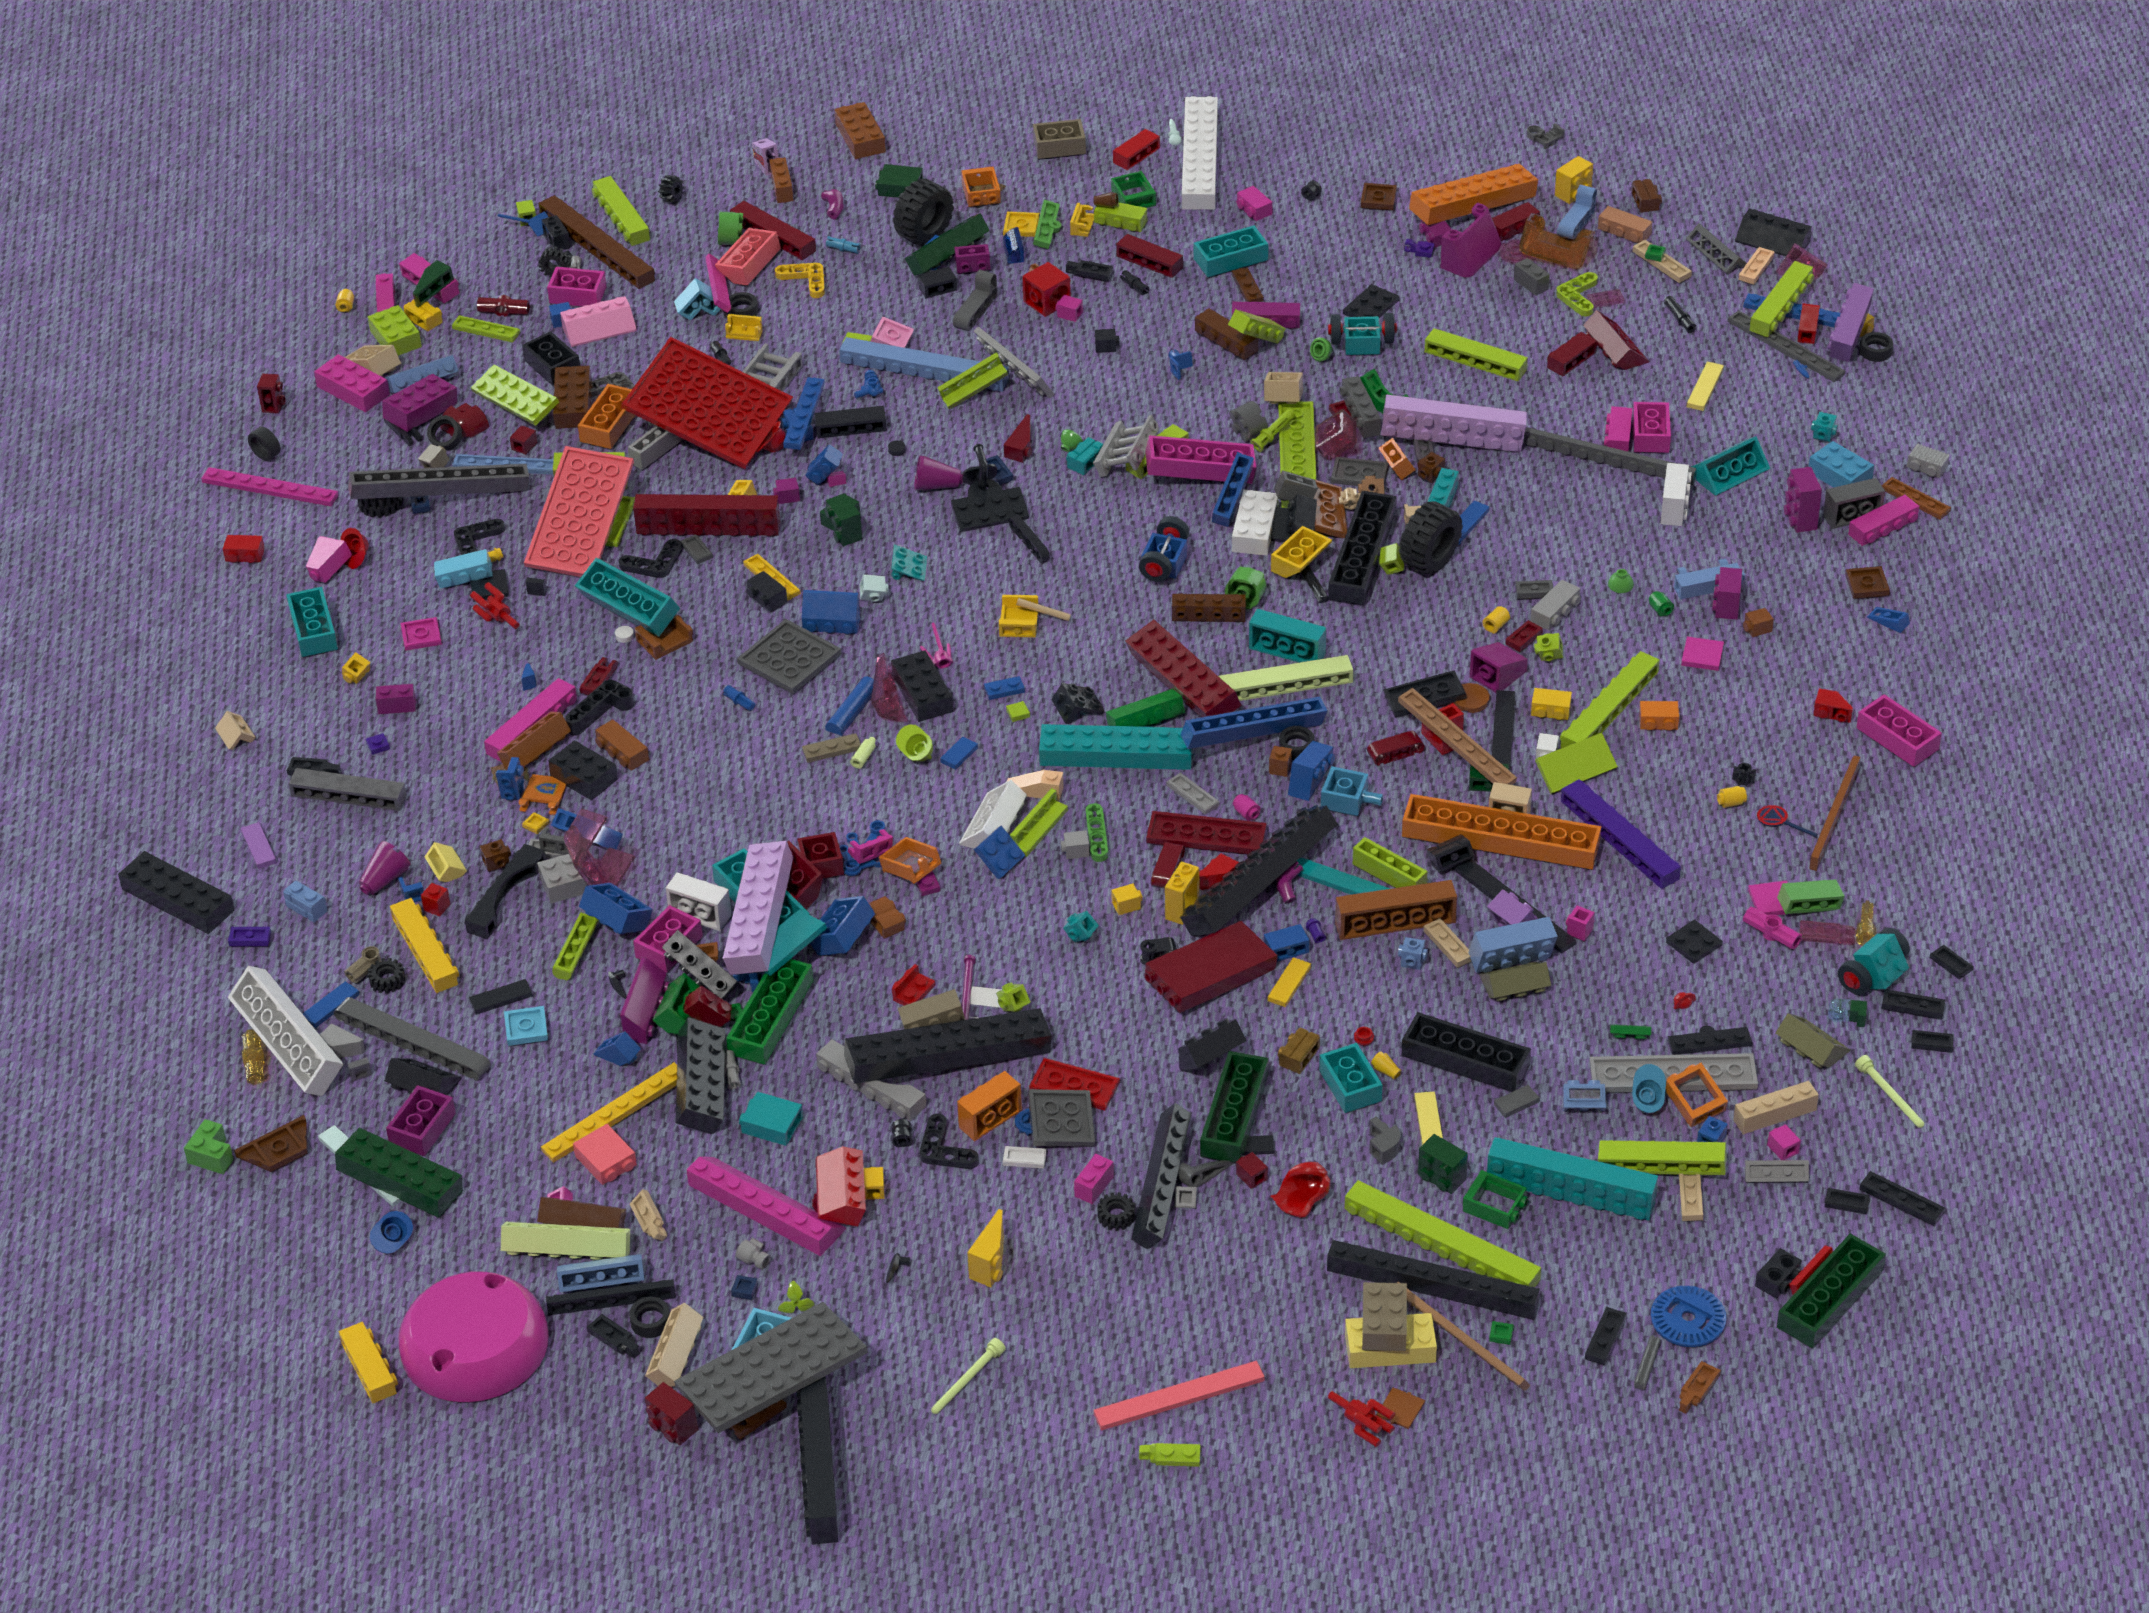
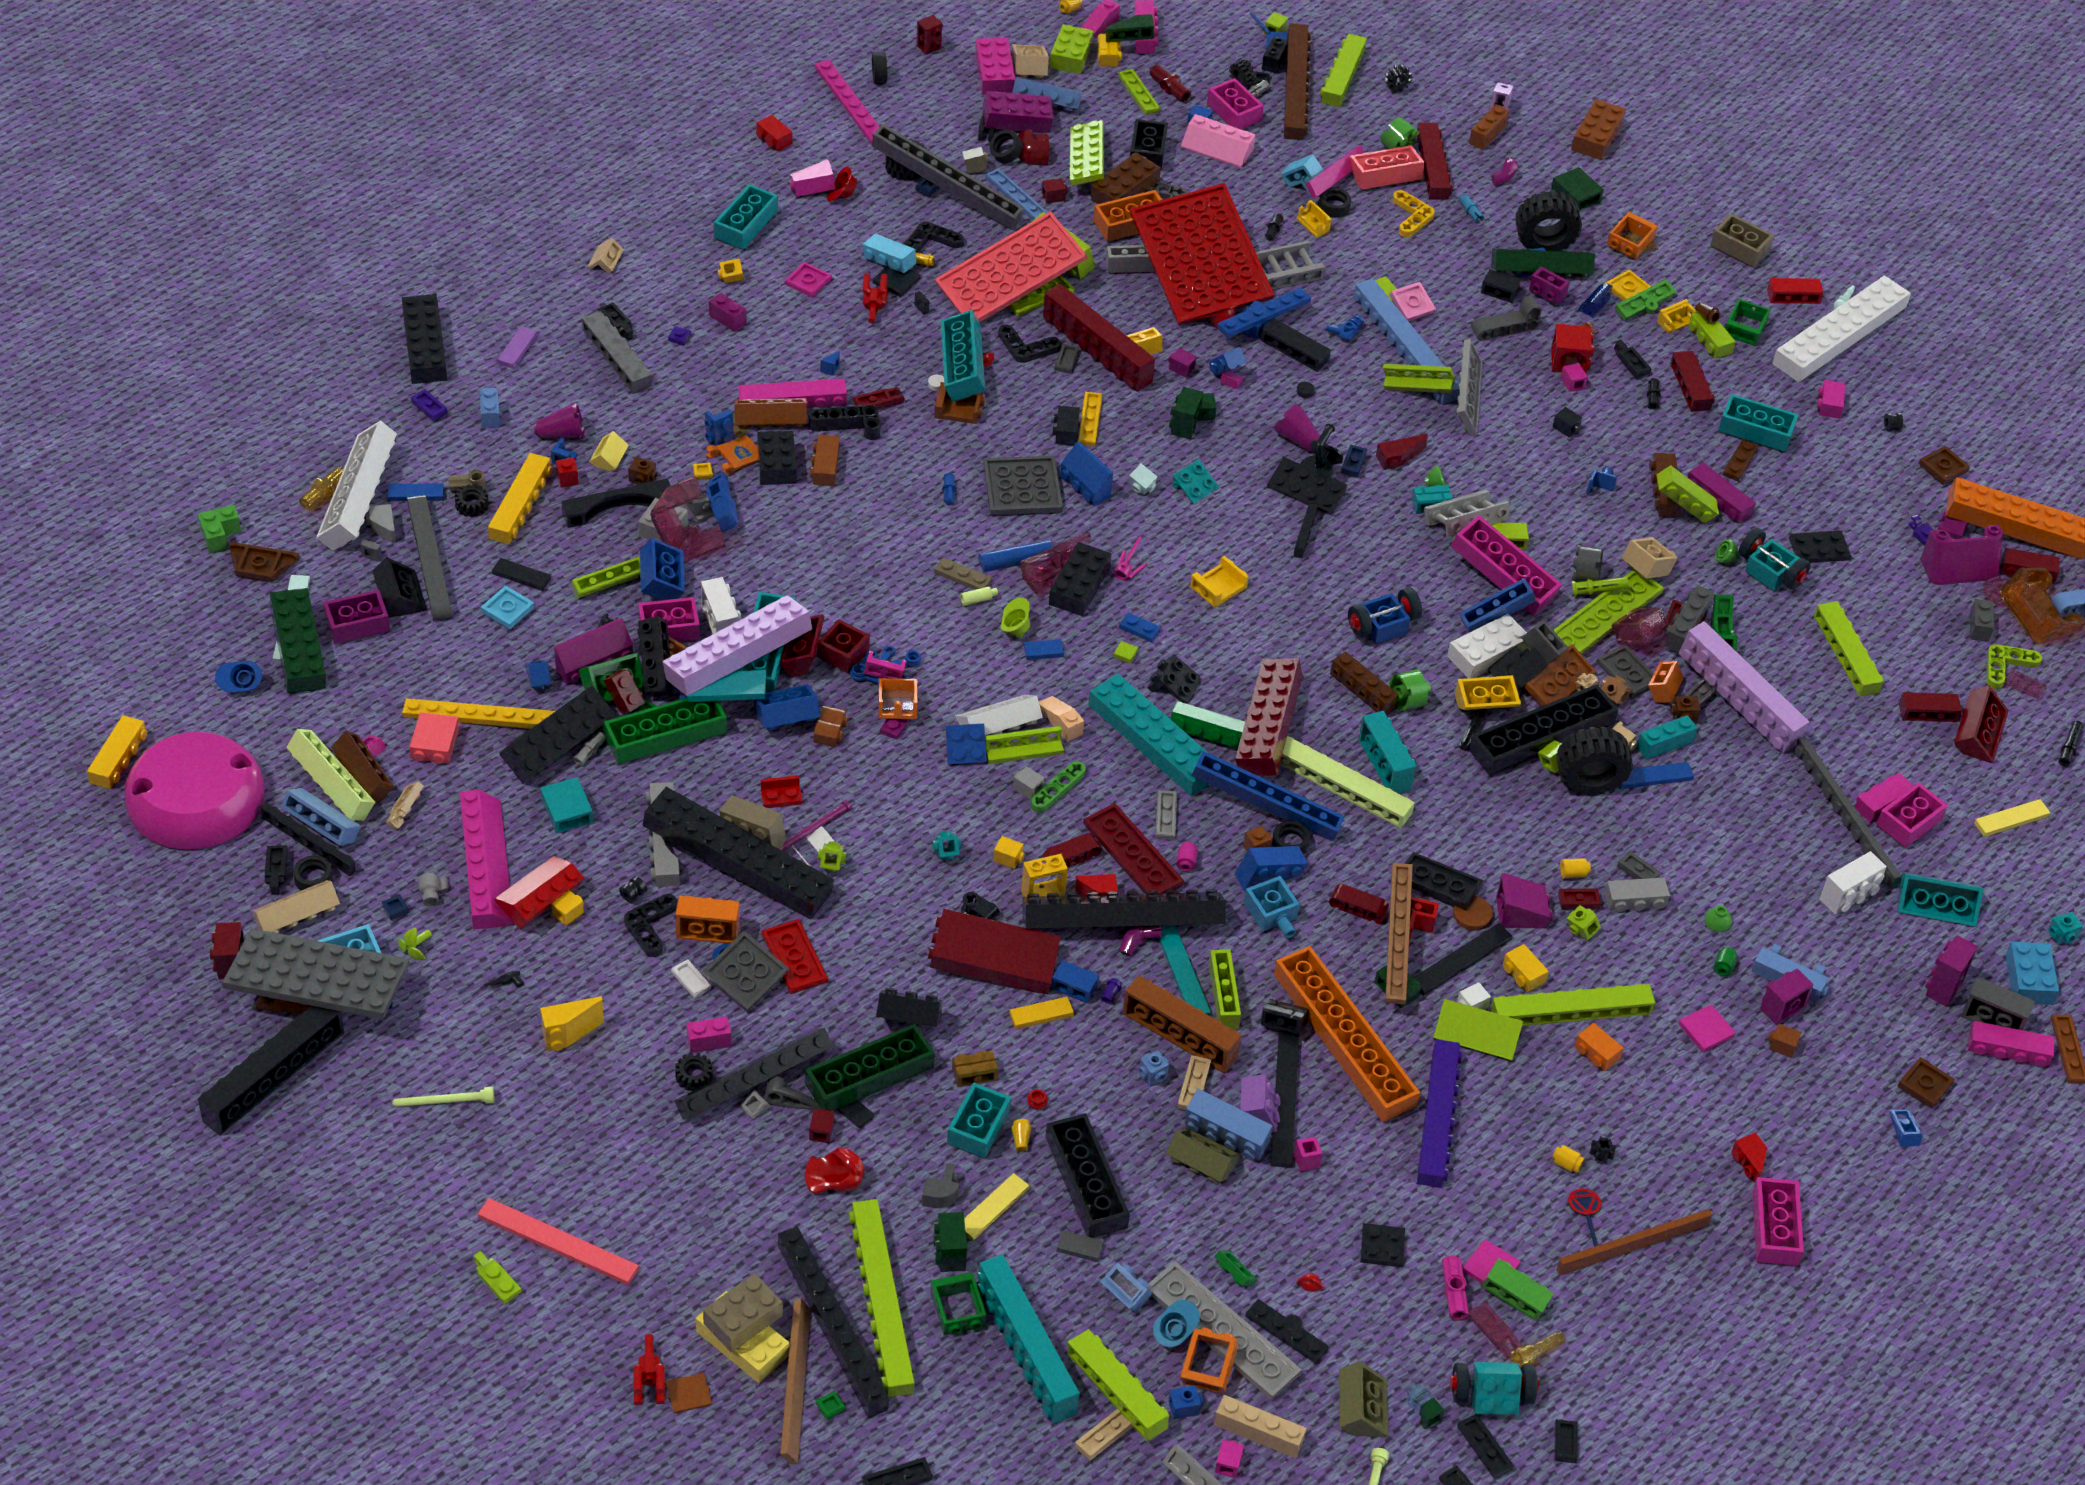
camera: 40 degrees right, 5 degrees up
(1043, 609) = (1242, 589): tan bar -> none
(1510, 798) = (1379, 1014): tan brick -> none

